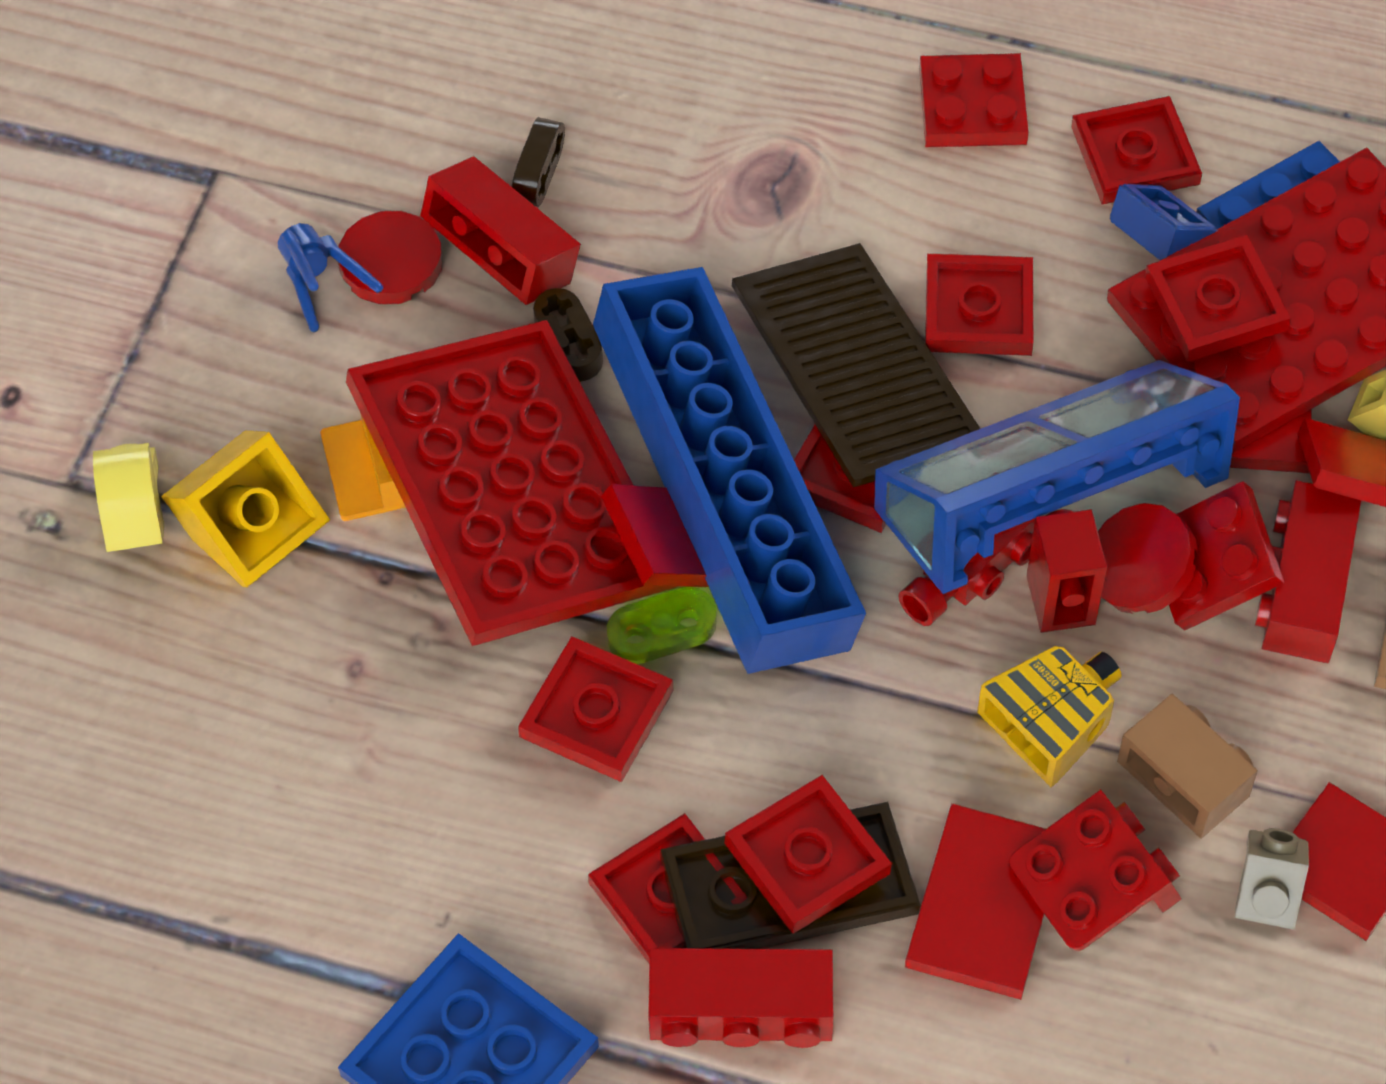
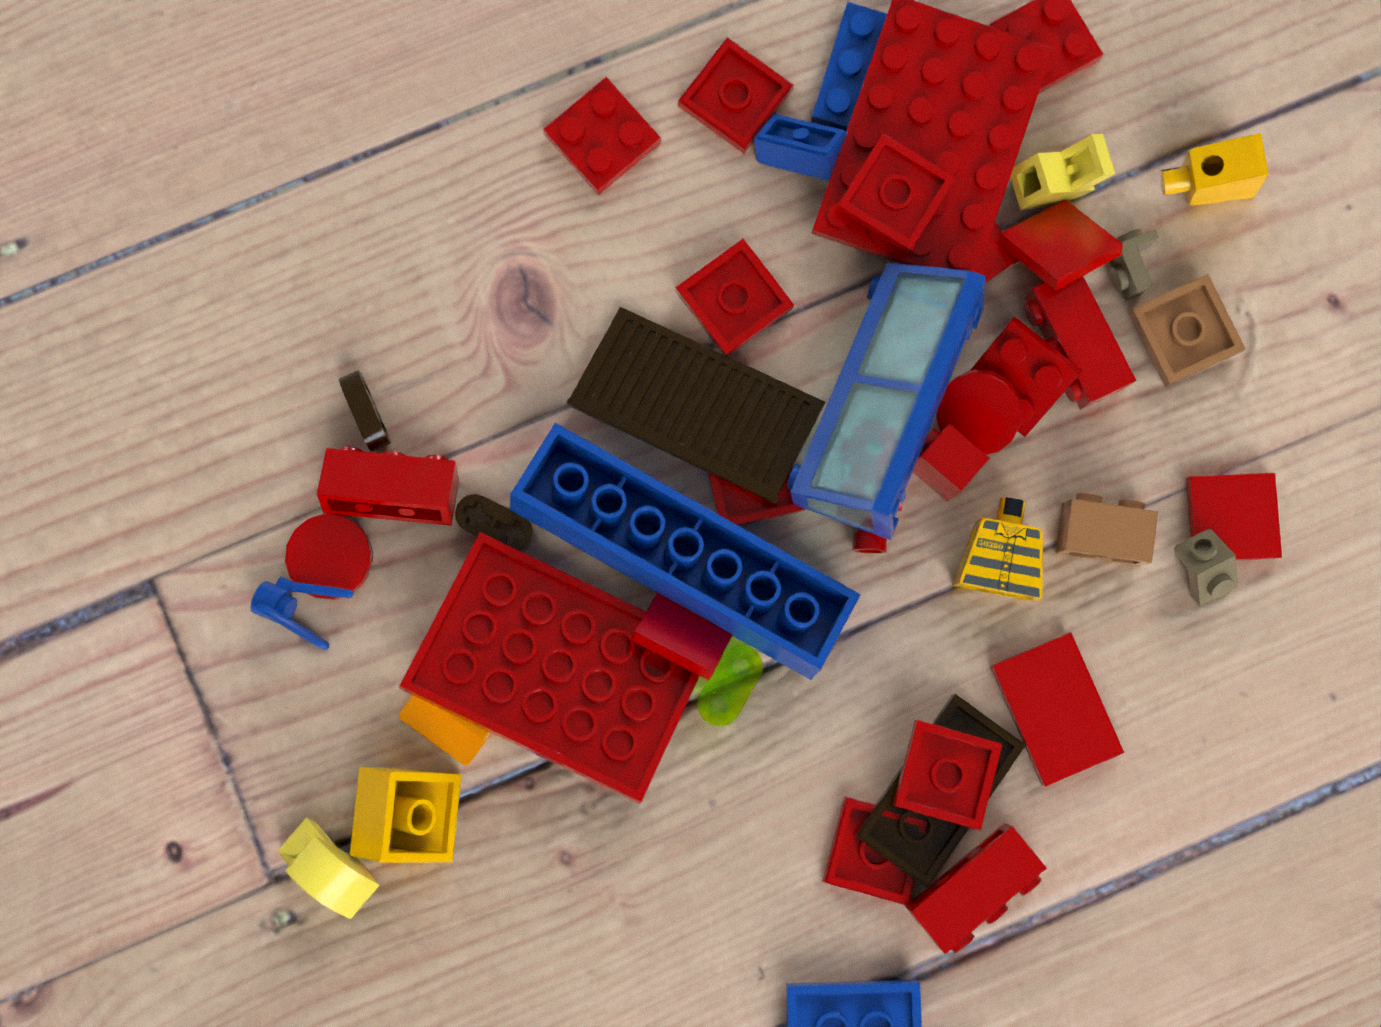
camera: 45 degrees left, 25 degrees up
(596, 708) = (738, 773): red plate -> none
(1093, 871) = (1112, 647): red bracket -> none

